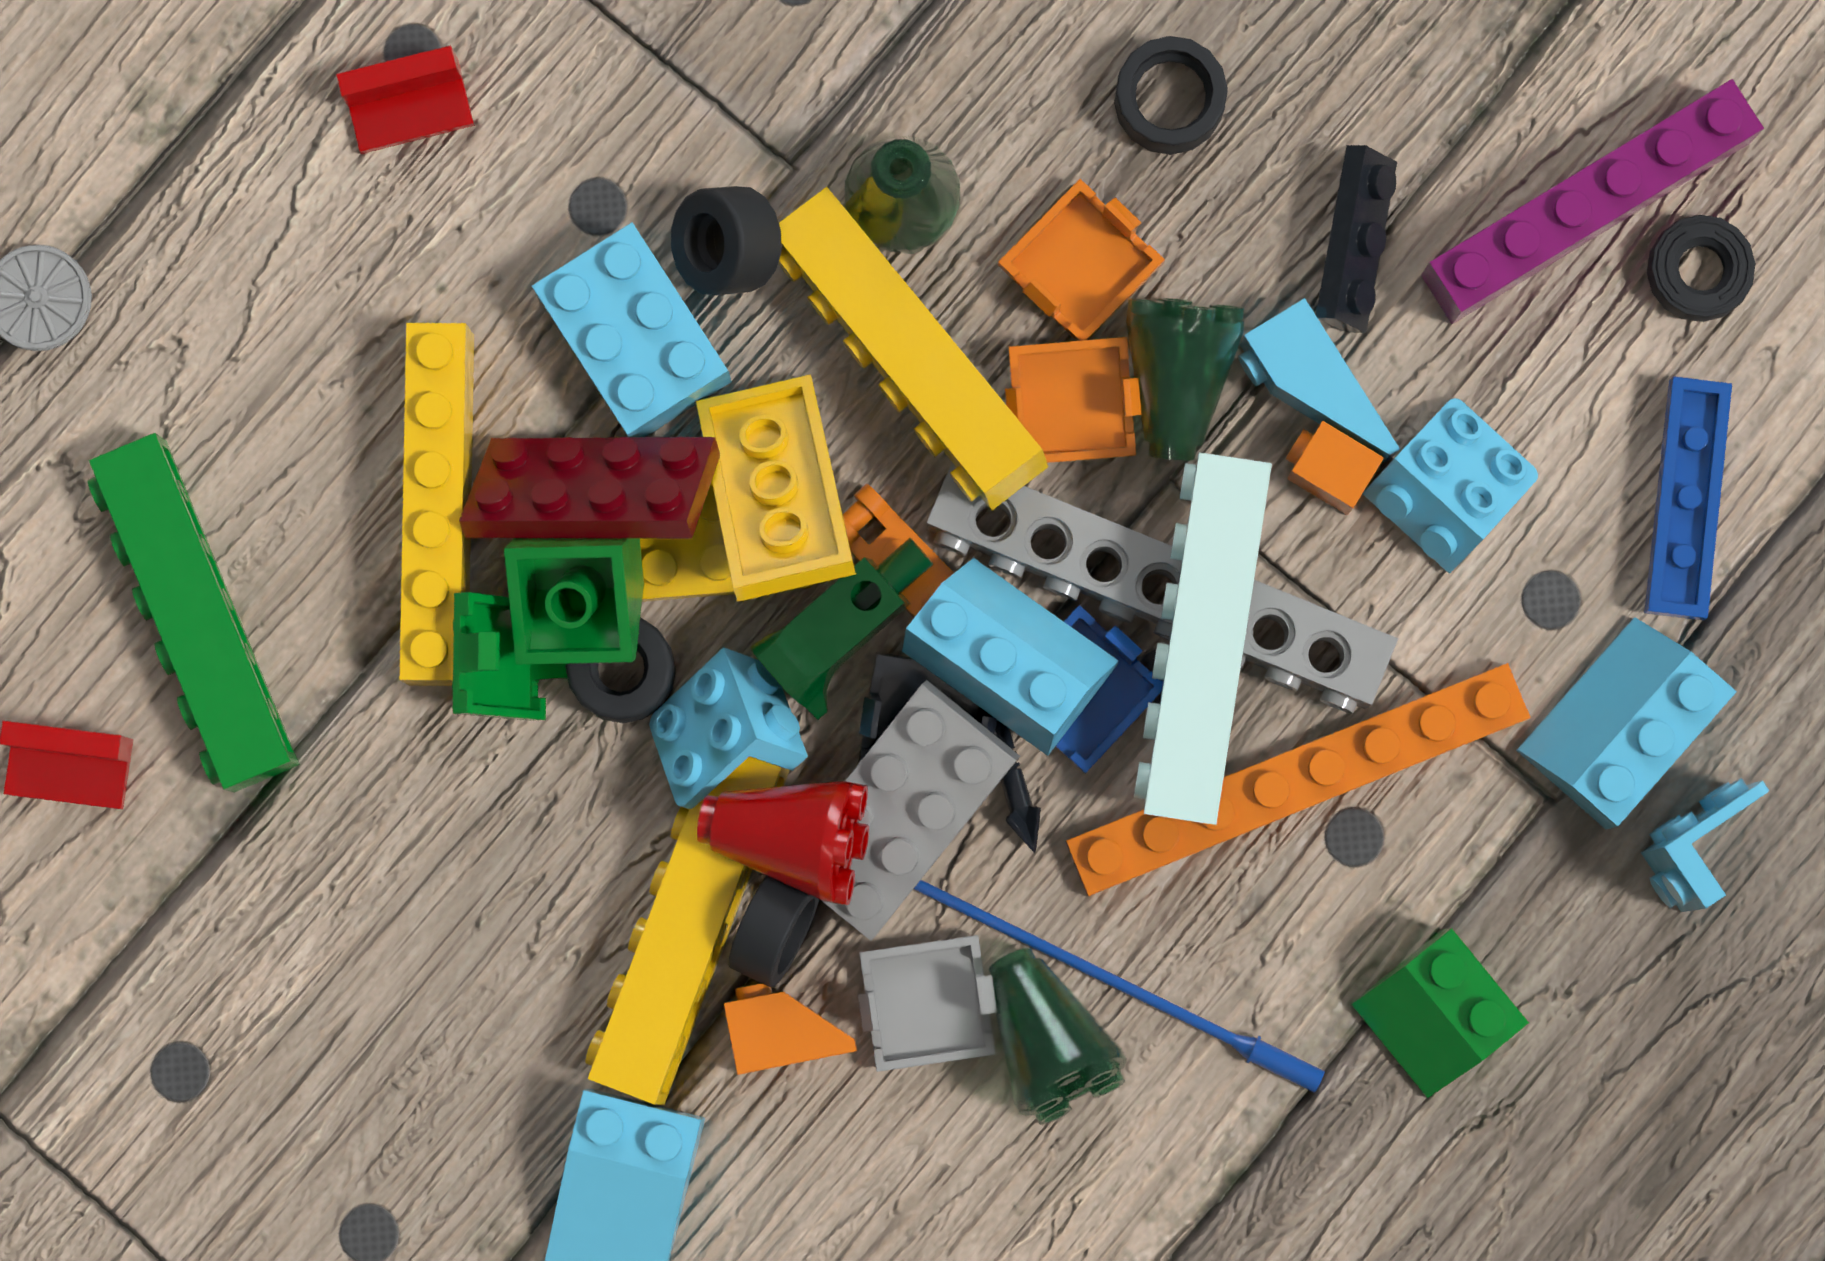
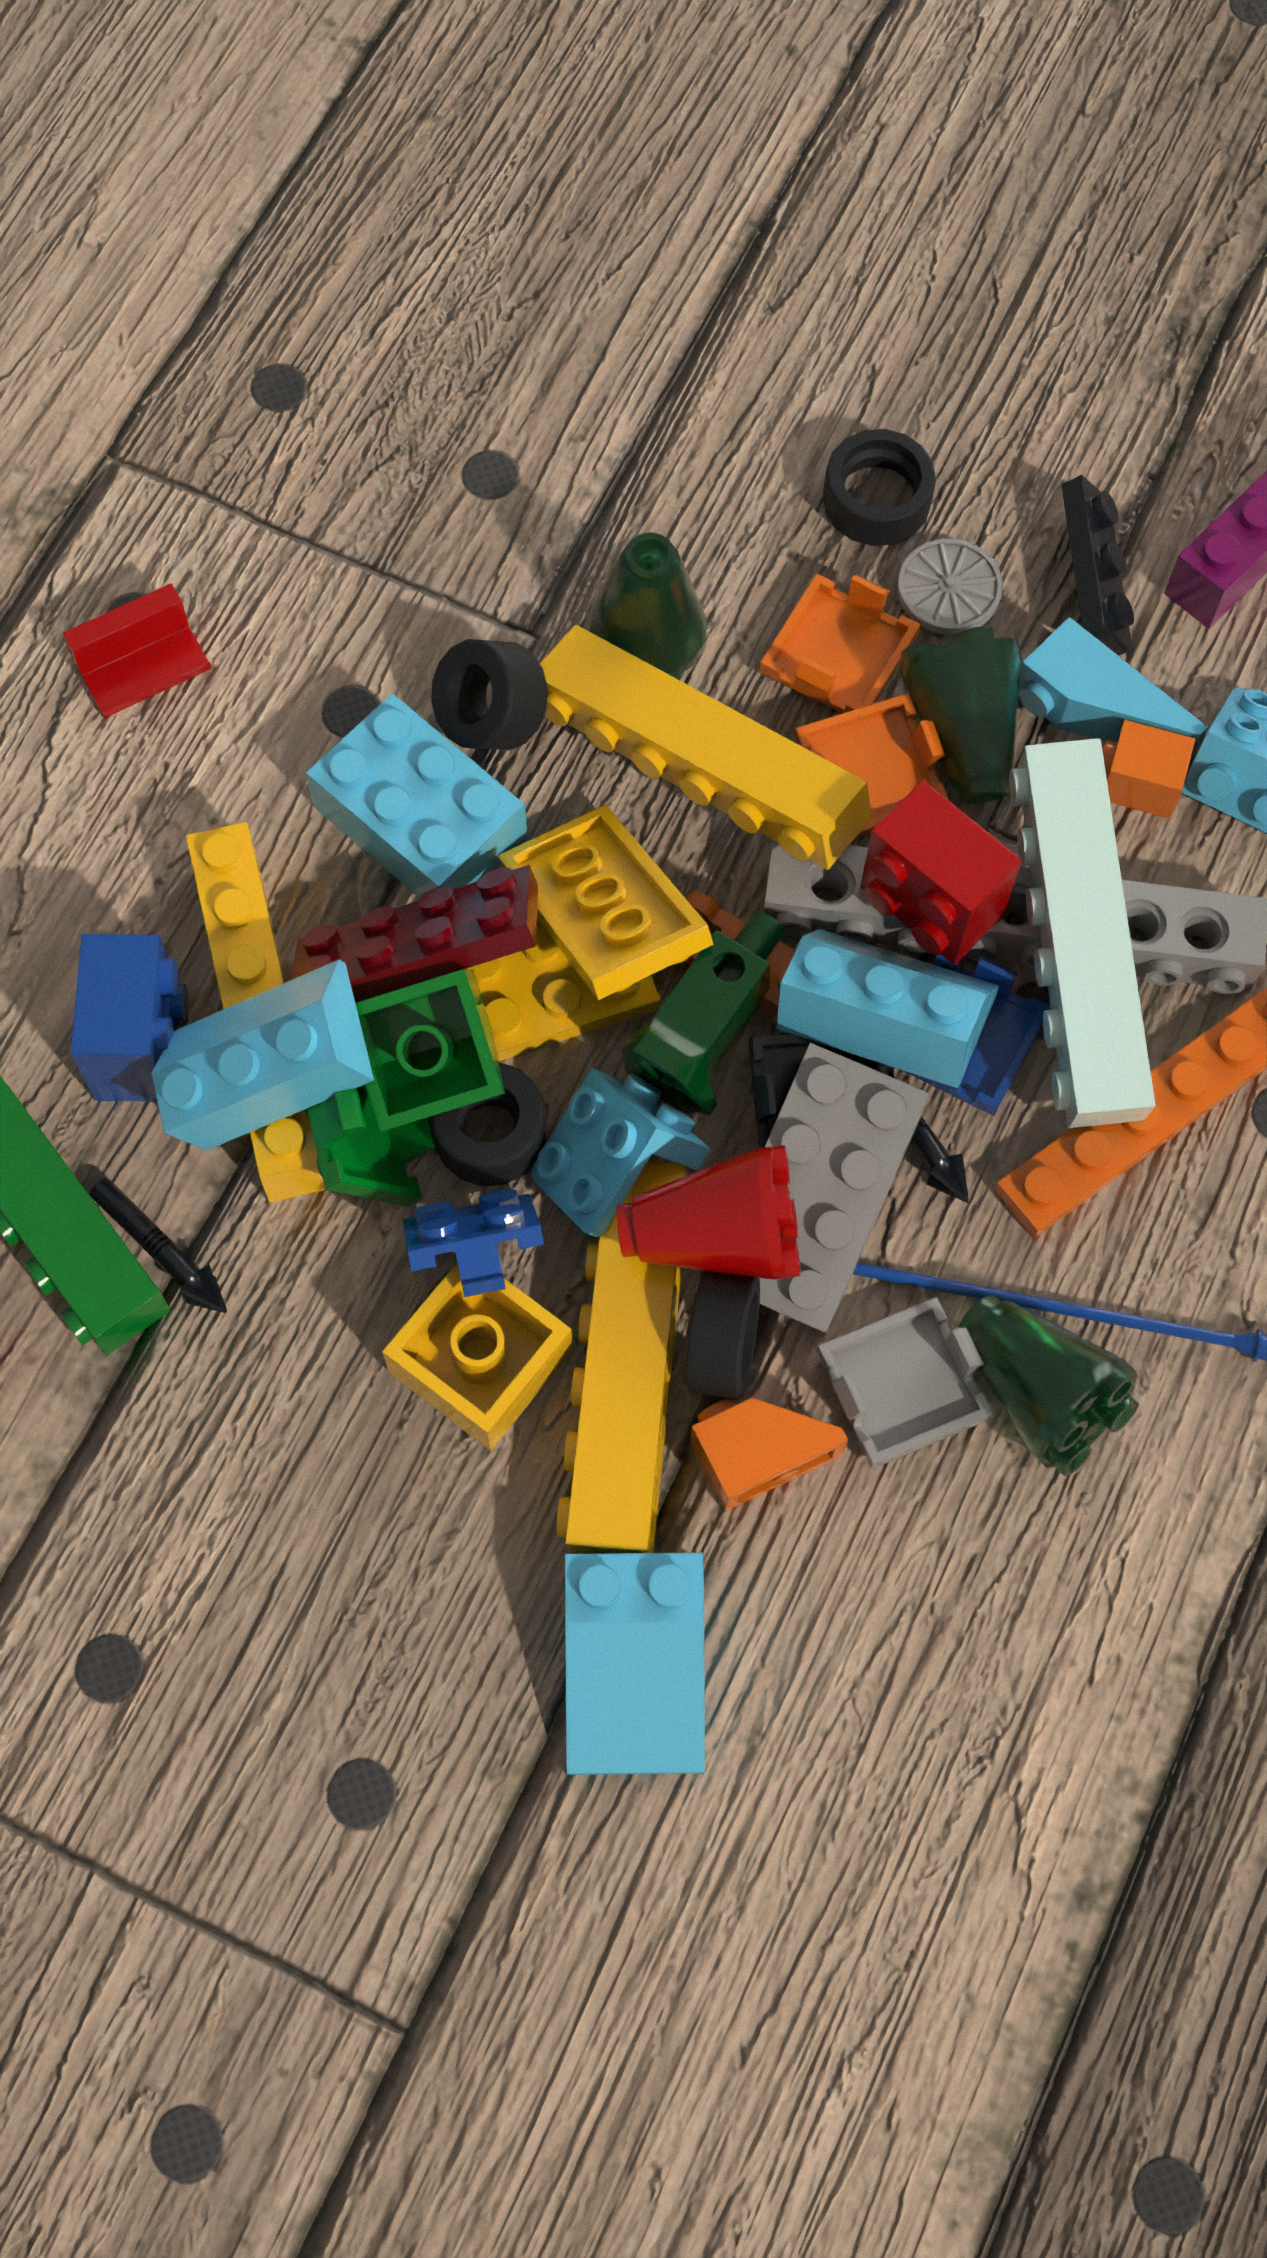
camera: 20 degrees left, 15 degrees down
(316, 491) = (124, 1013): none -> blue brick
(327, 752) = (196, 1283): none -> black piece
(422, 575) = (262, 1059): none -> medium azure slope
(556, 884) = (478, 1355): none -> yellow brick
(572, 780) = (473, 1236): none -> blue piece
(1082, 555) = (938, 873): none -> red brick
(1209, 219) = (949, 586): none -> light grey wheel

